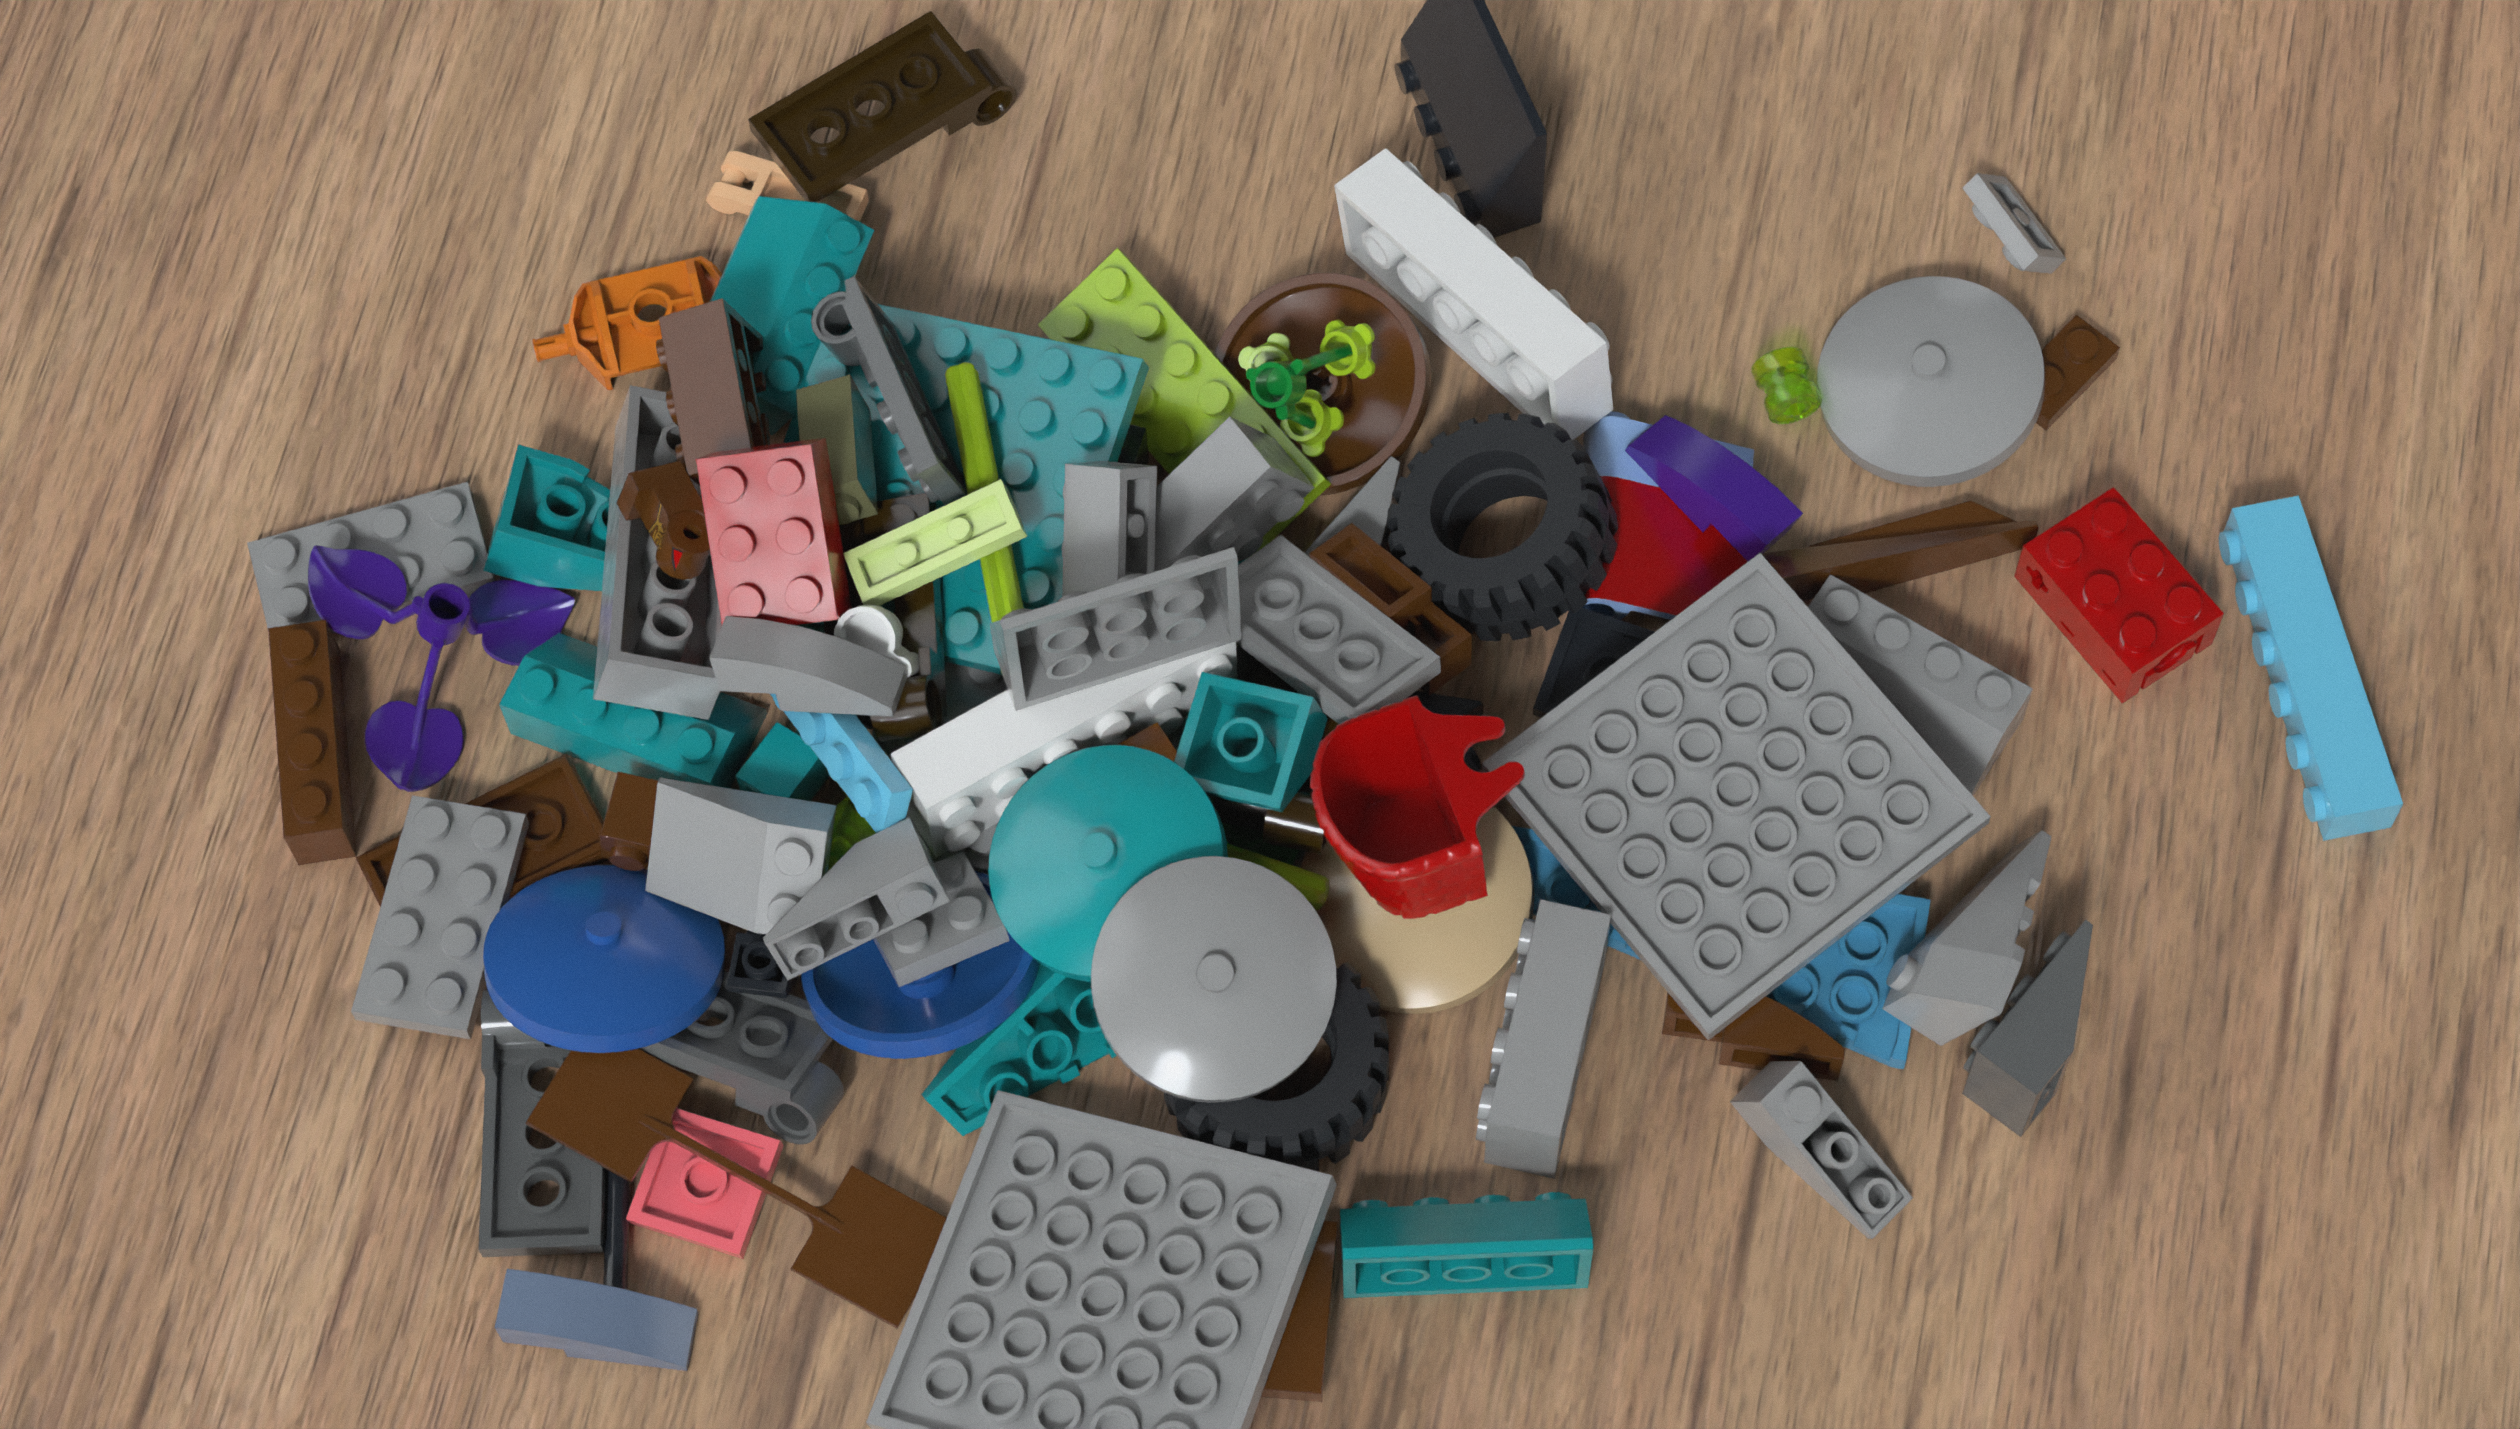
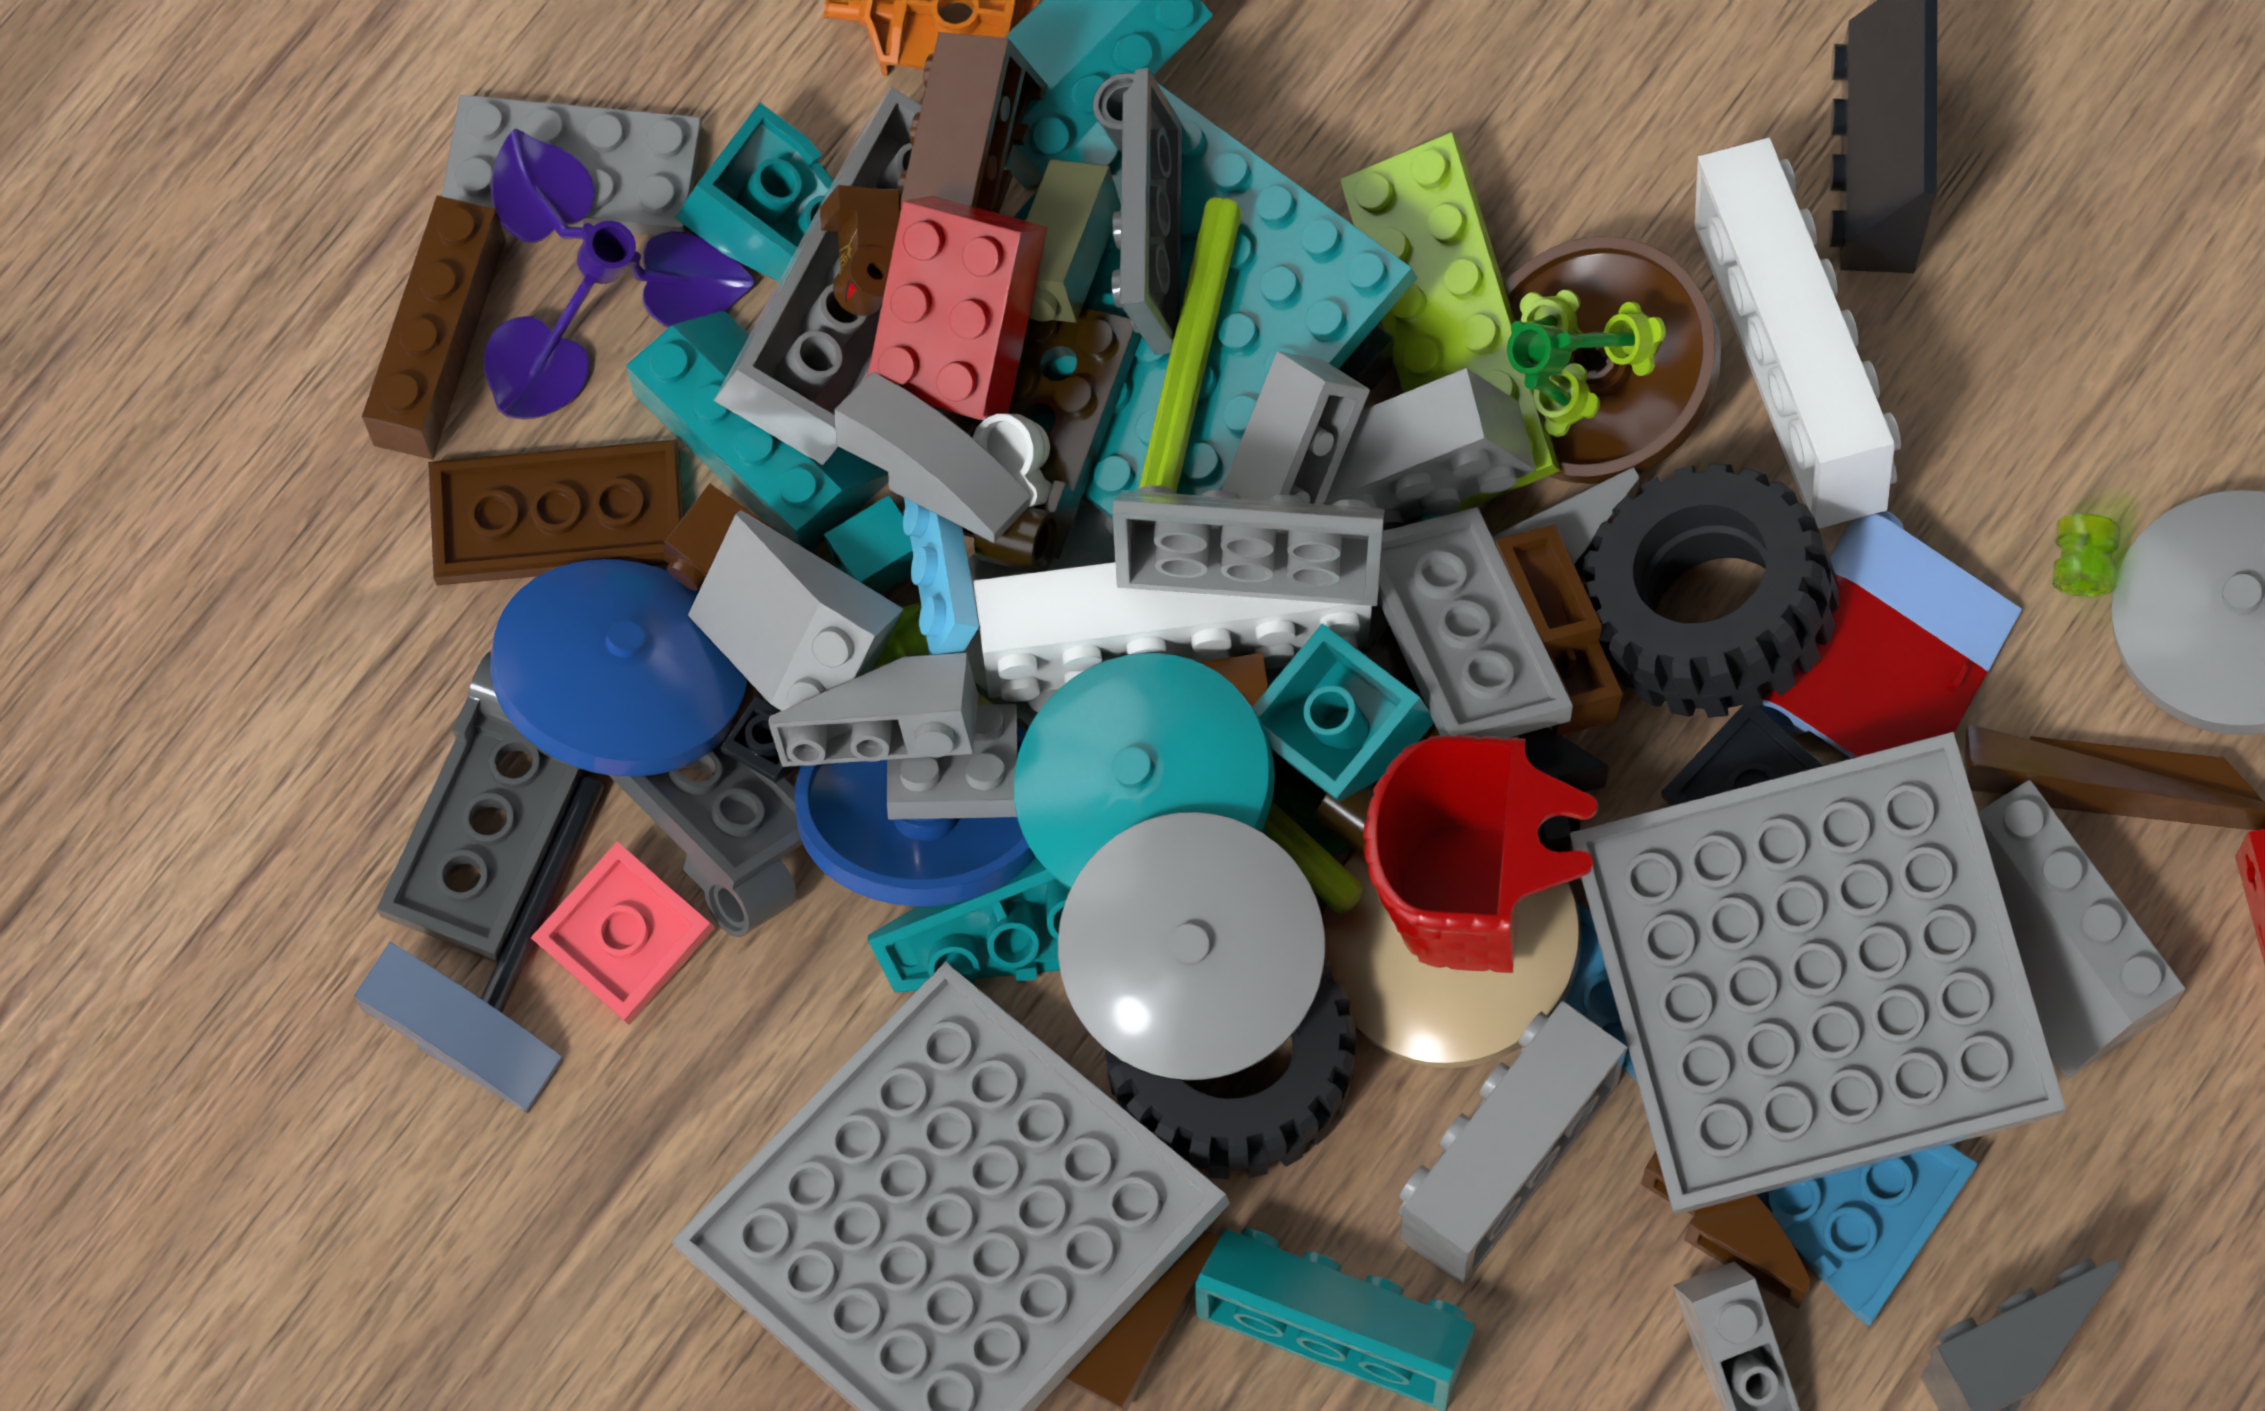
camera: 25 degrees right, 5 degrees up
(434, 917) = (486, 542): light grey plate -> none
(863, 1243) = (751, 1058): reddish brown hinge -> none
(935, 544) = (1115, 380): yellowish green plate -> none
(1714, 486) = (1953, 635): dark purple slope -> none
(1970, 957) = (1978, 1247): light grey wedge -> none

